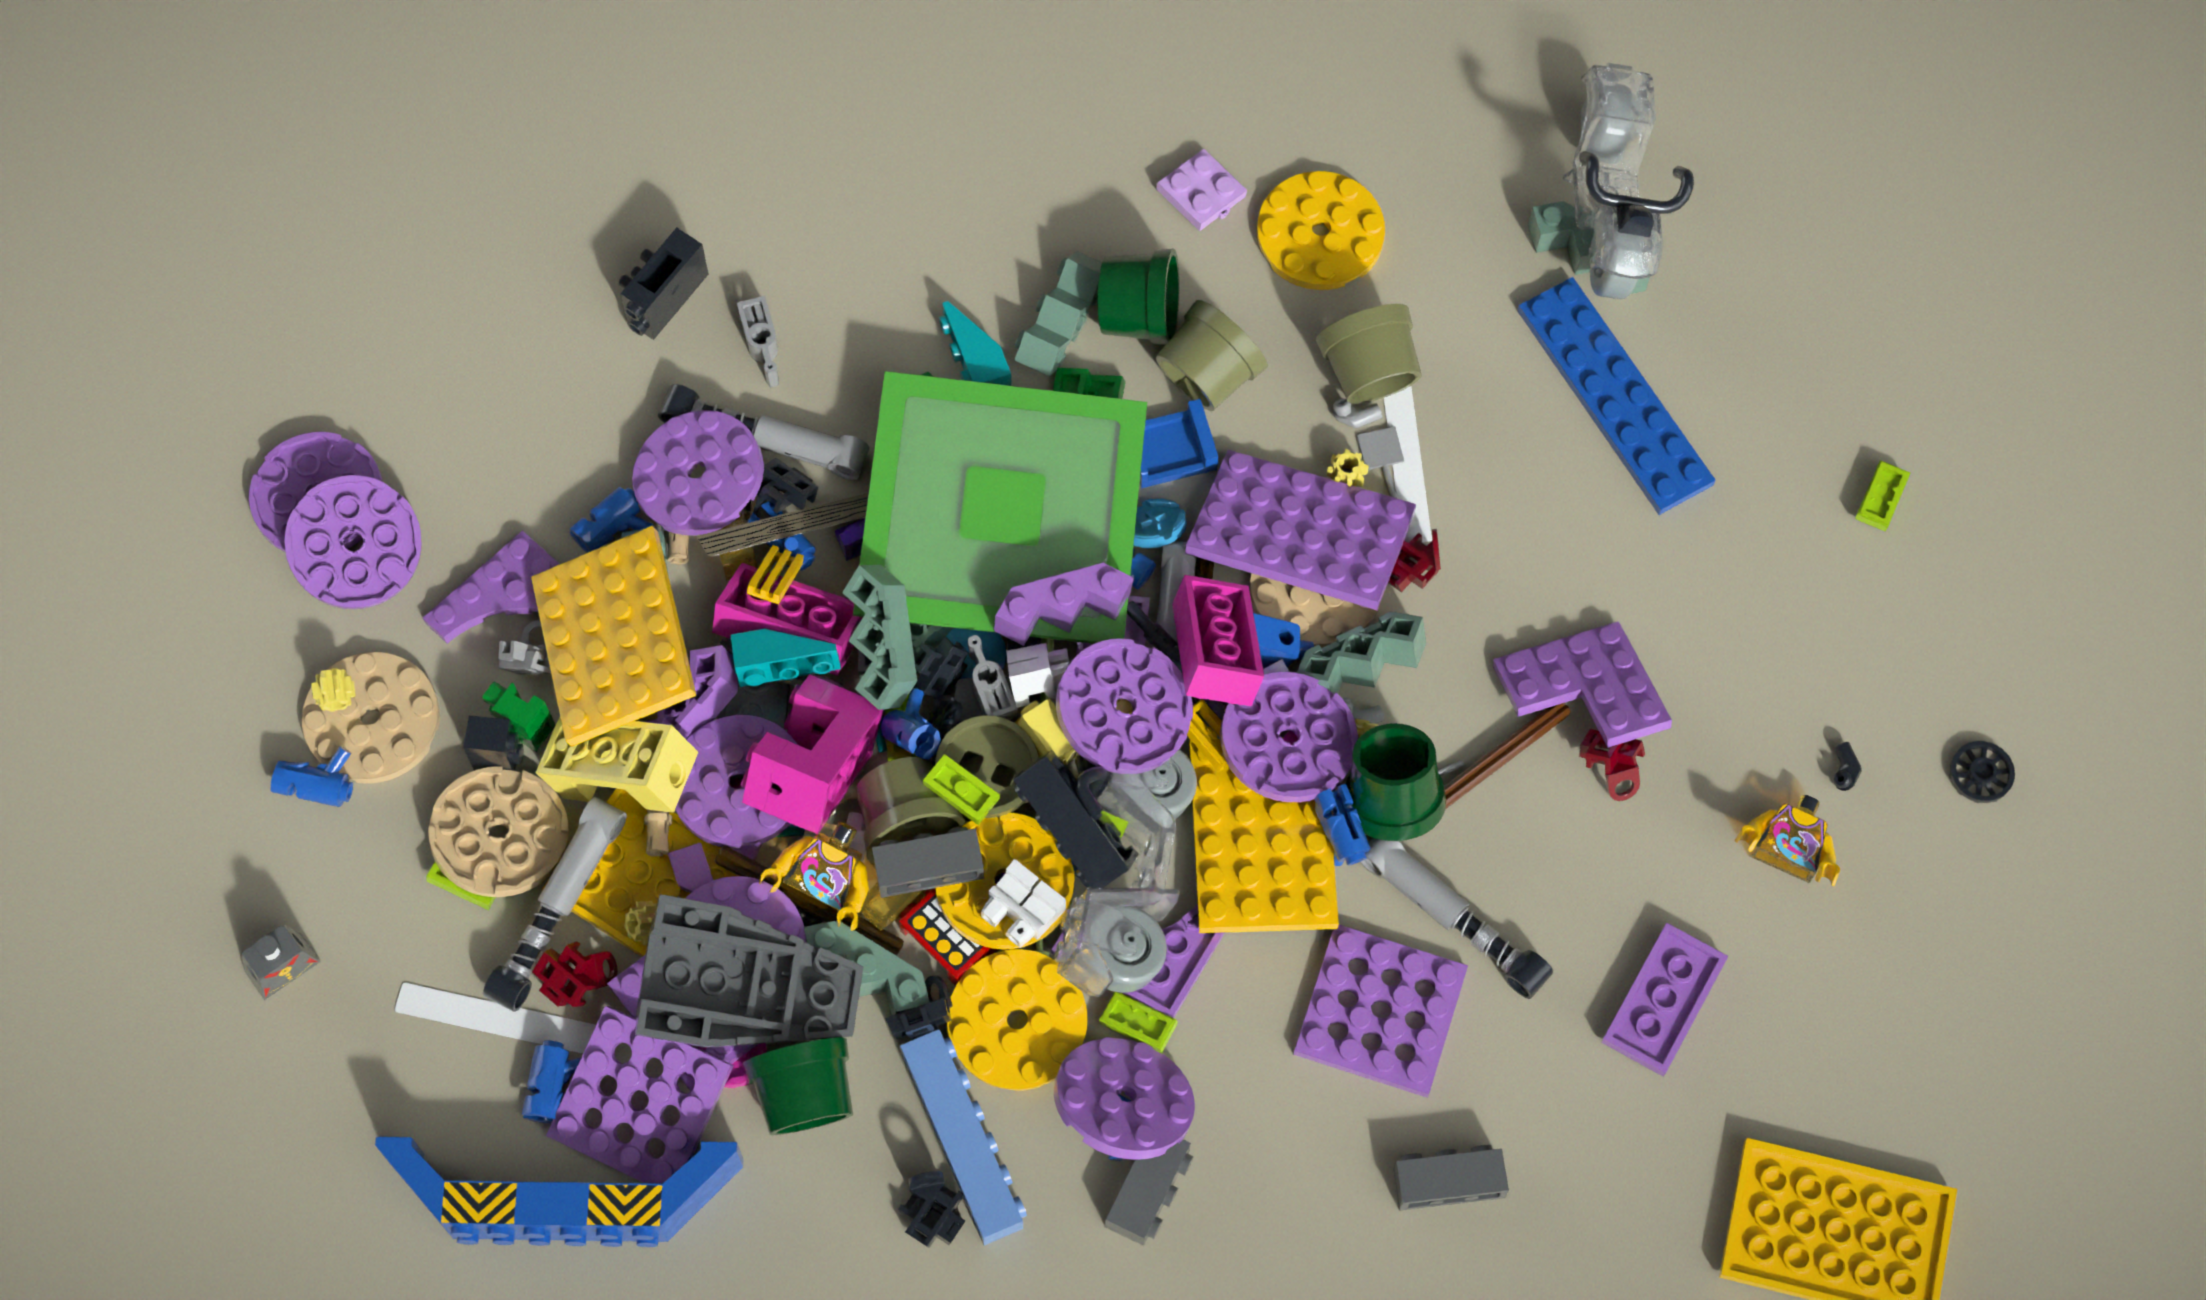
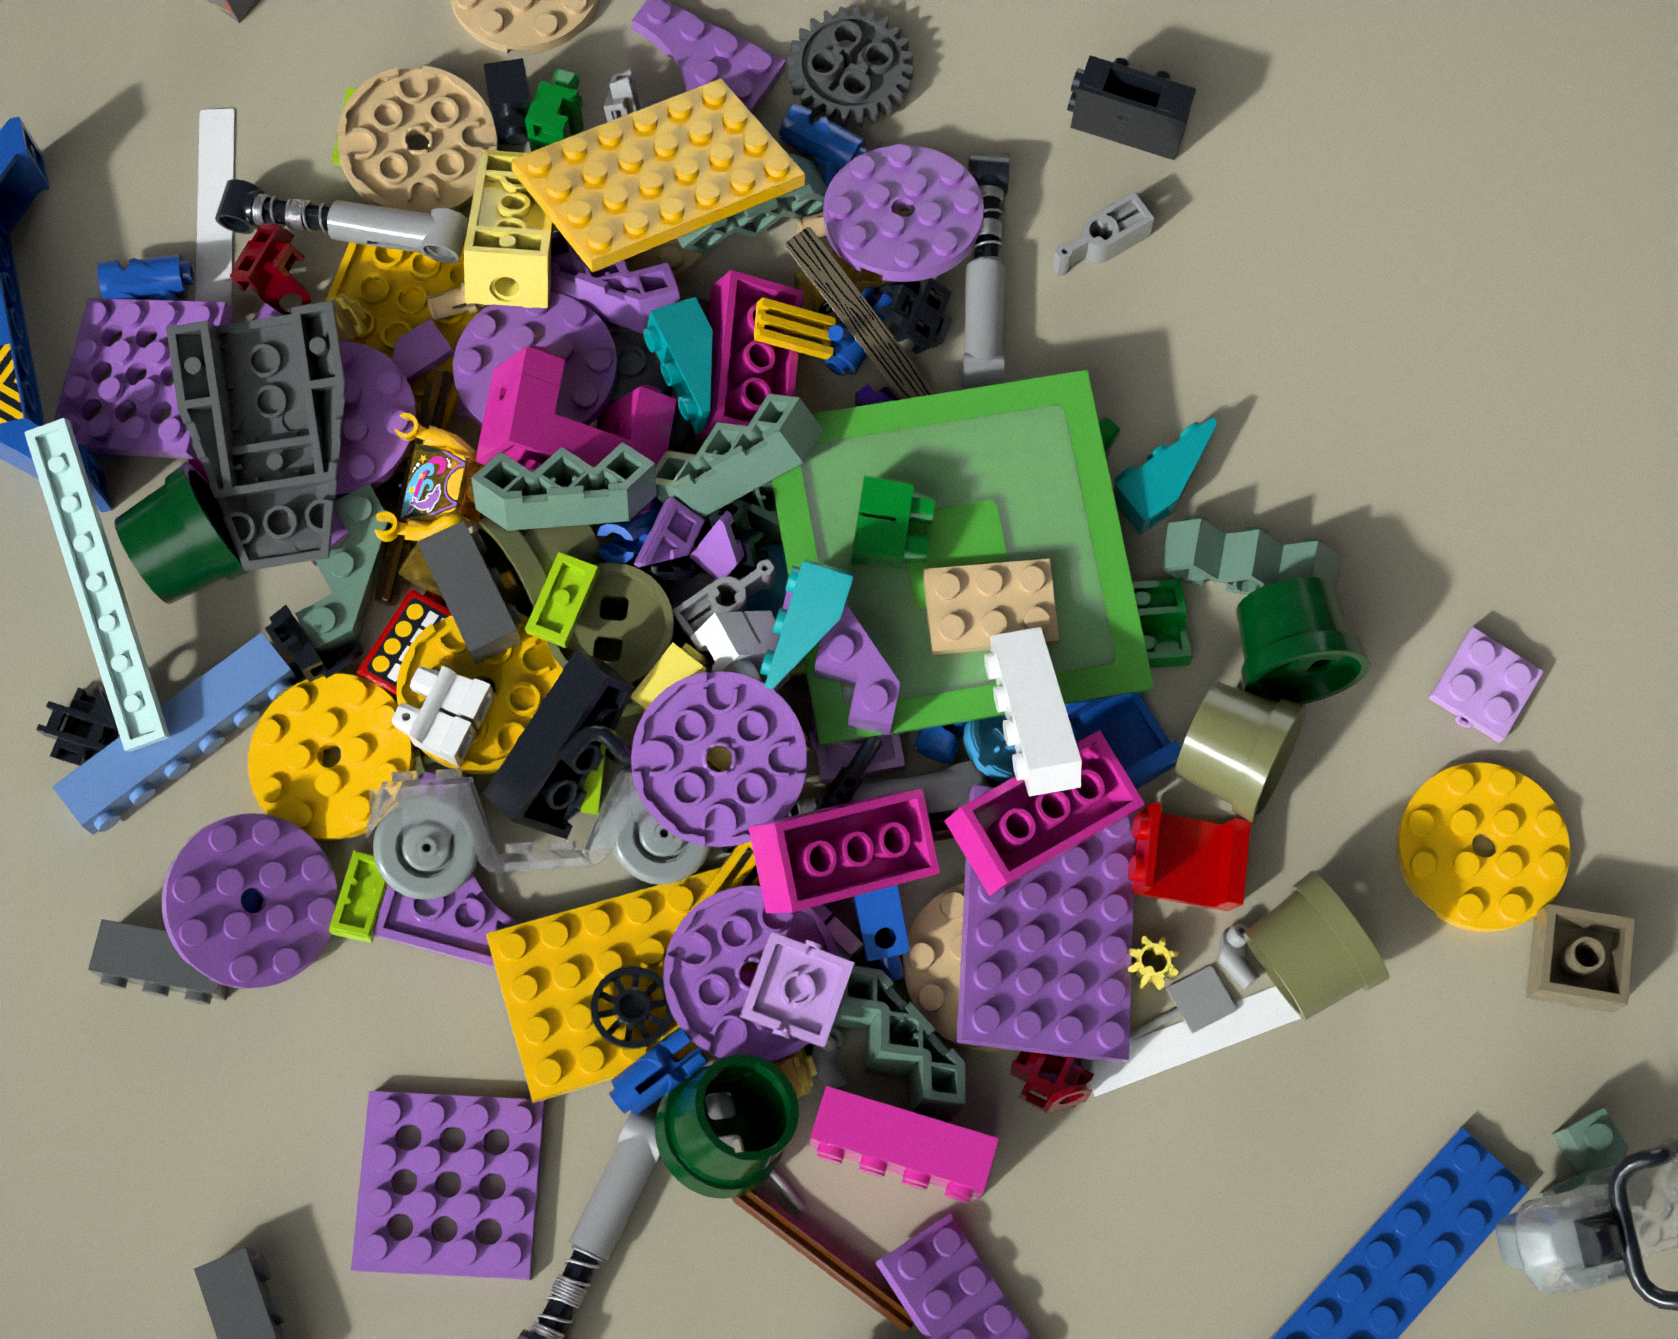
camera: 75 degrees right, 5 degrees up
(572, 466) = (822, 49): none -> dark grey gear
(828, 1153) = (97, 585): none -> light aqua plate
(879, 757) = (564, 490): none -> sand green brick
(926, 702) = (671, 534): none -> medium lavender tile
(948, 673) = (719, 550): none -> medium lavender tile
(969, 541) = (884, 521): none -> green hips
(1037, 600) = (814, 609): none -> teal slope
(1053, 492) = (987, 600): none -> tan plate
(1153, 476) = (1034, 712): none -> white brick
(1226, 497) = (1014, 834): none -> dark pink brick
(1278, 420) = (1189, 859): none -> red panel
(1287, 833) = (630, 1008): none -> black wheel
(1312, 702) = (797, 989): none -> lavender plate
(1422, 190) = (1581, 958): none -> dark tan brick
(1441, 667) = (903, 1143): none -> dark pink brick

